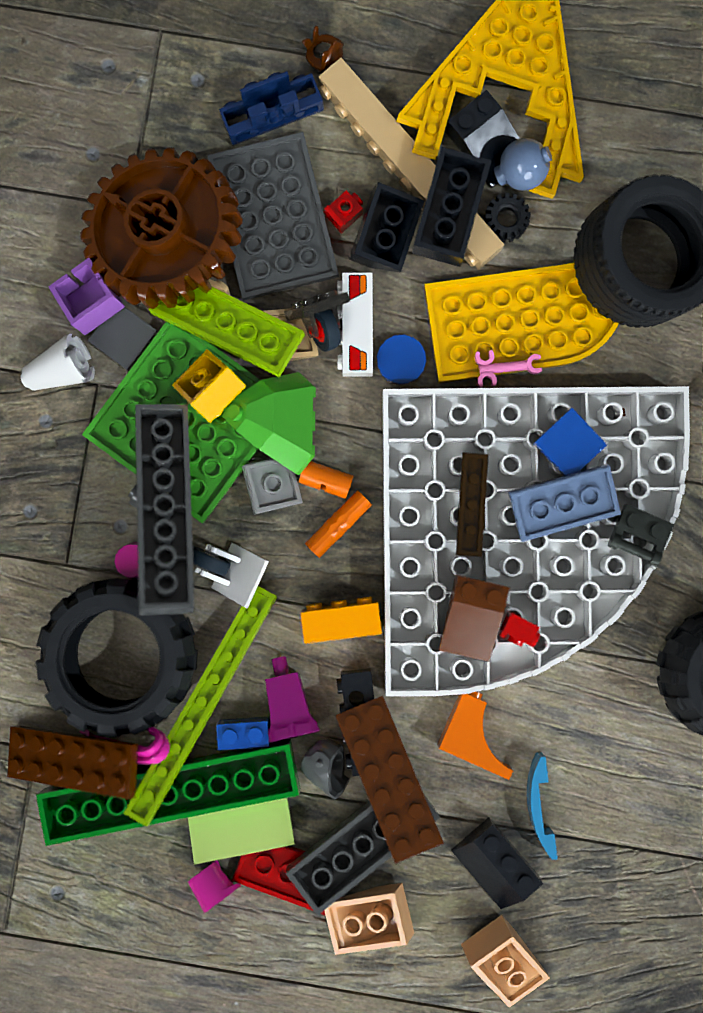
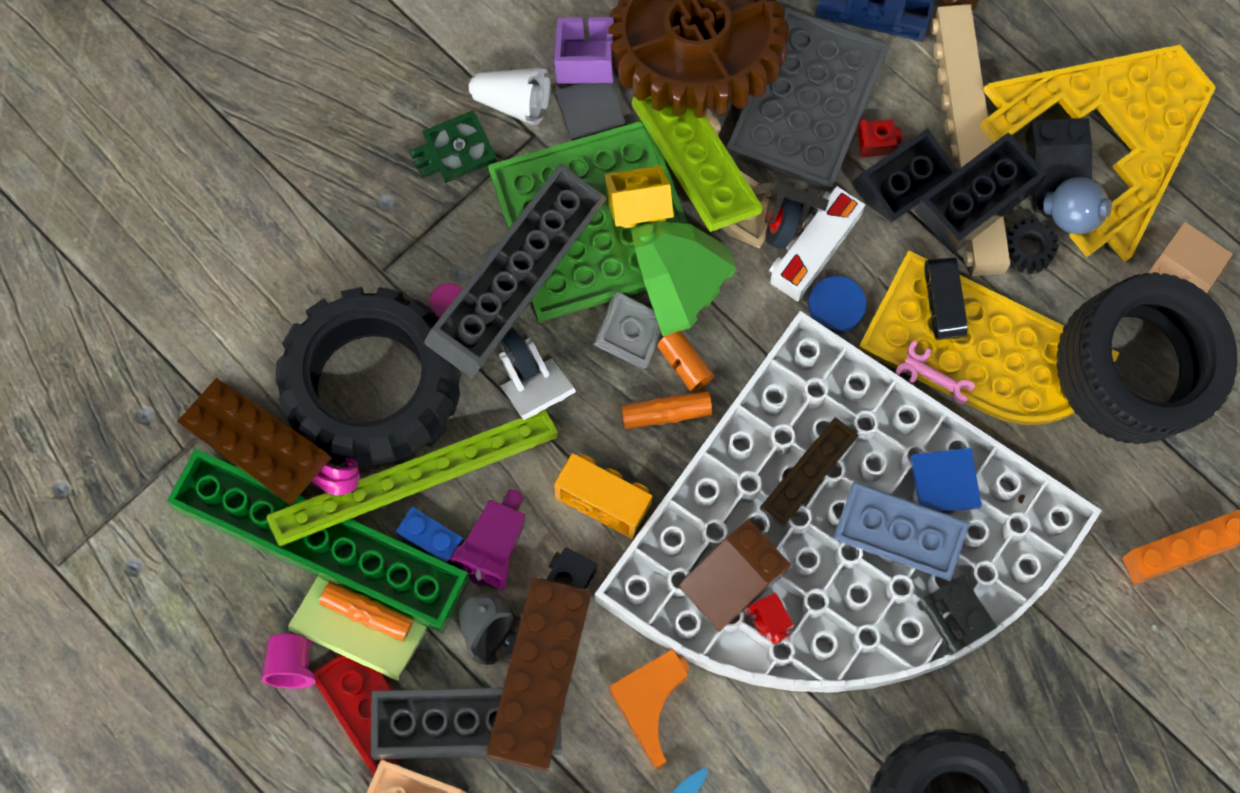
camera: 30 degrees right, 15 degrees down
(48, 437) = (454, 148): none -> dark green piece
(238, 818) = (366, 611): none -> orange axle
(477, 304) = (945, 298): none -> black beam
(625, 153) = (1192, 258): none -> light nougat slope

